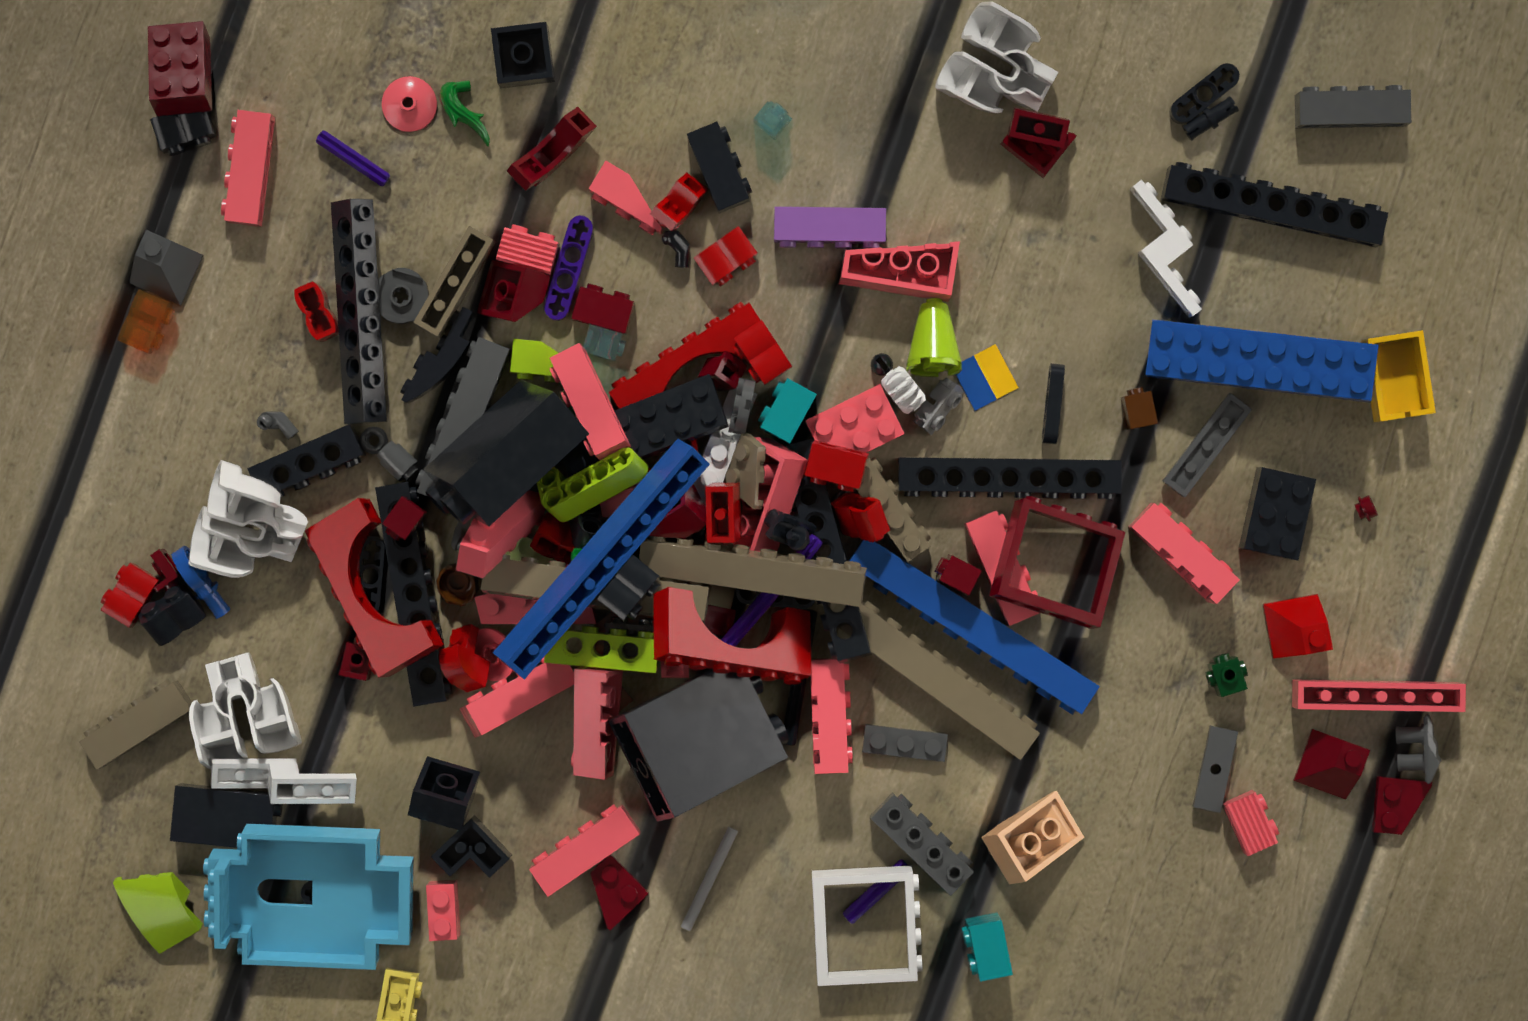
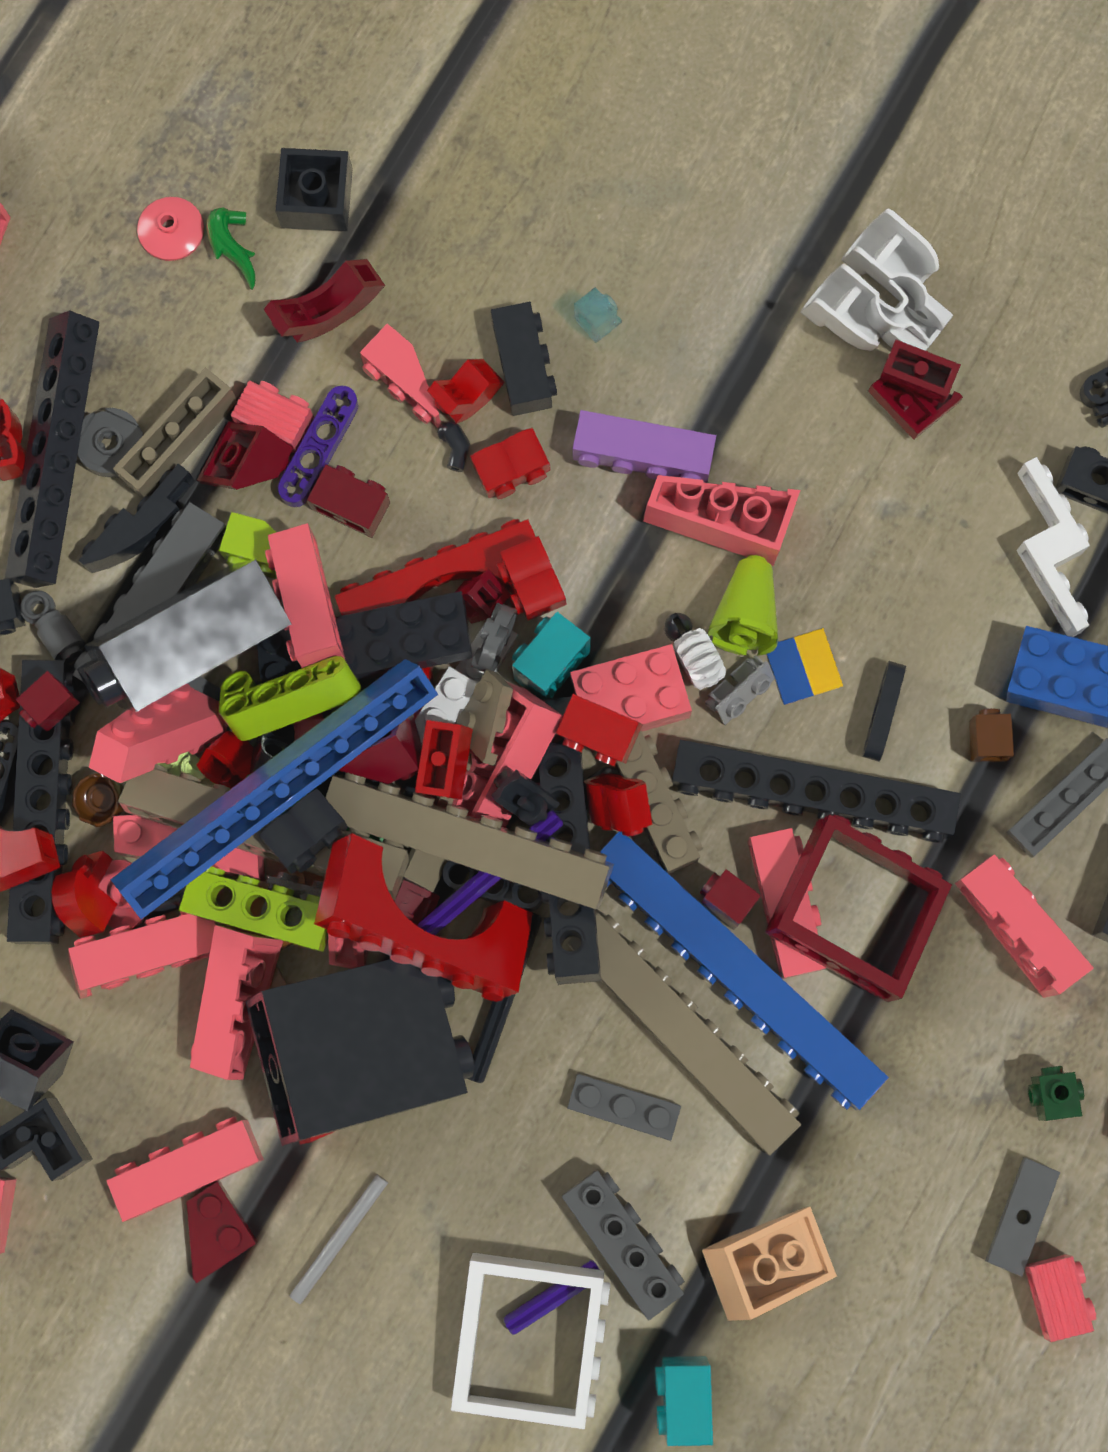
camera: 10 degrees right, 10 degrees down
(352, 158) = (89, 276): dark purple axle -> none
(604, 343) = (342, 539): clear light blue brick -> none
(829, 716) = (532, 1052): coral wedge -> none

